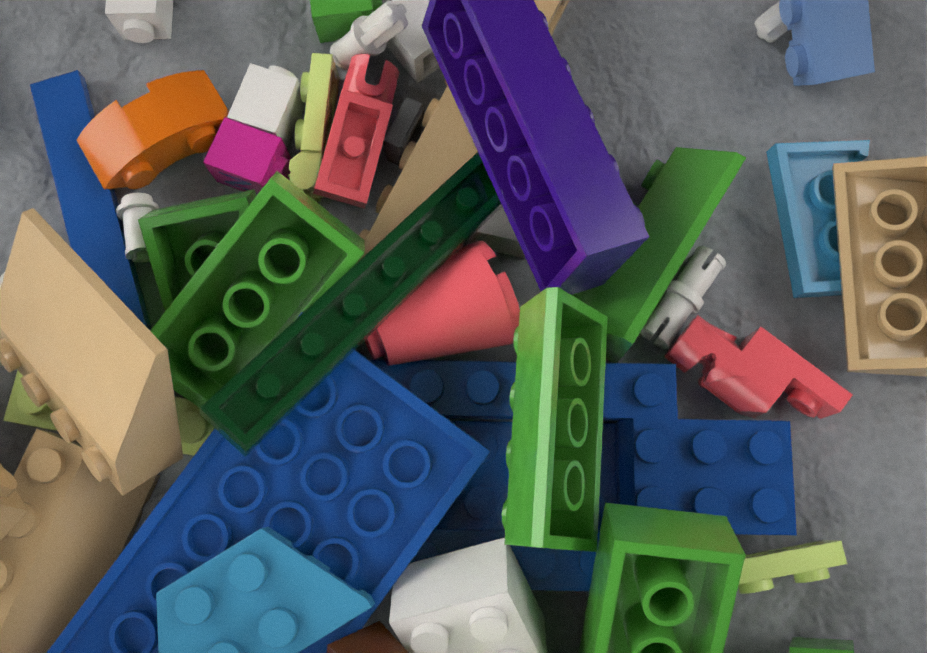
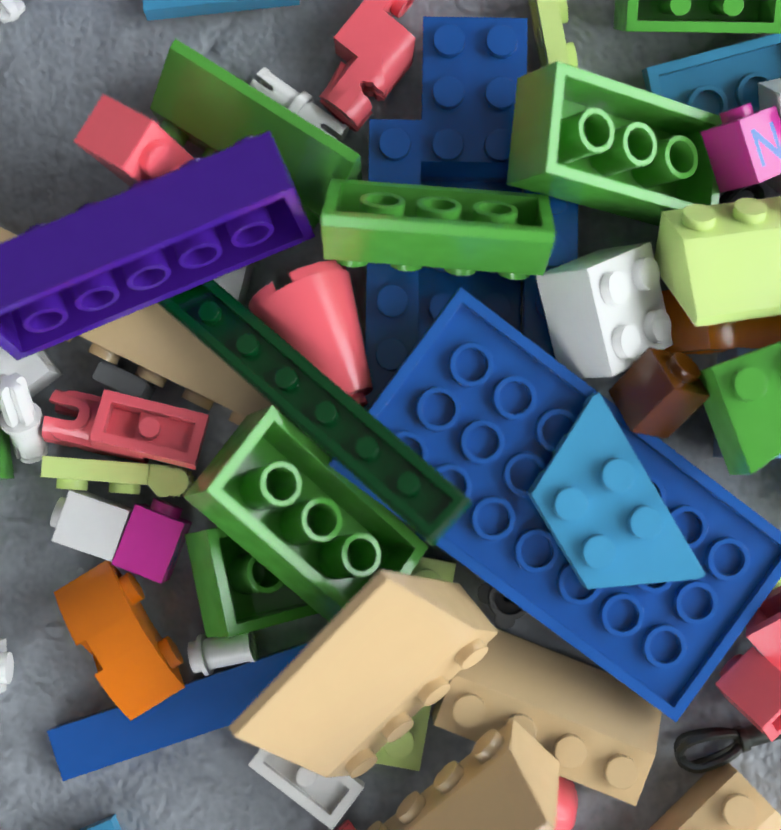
camera: 90 degrees left, 10 degrees up
(633, 109) = (129, 143): none -> coral brick

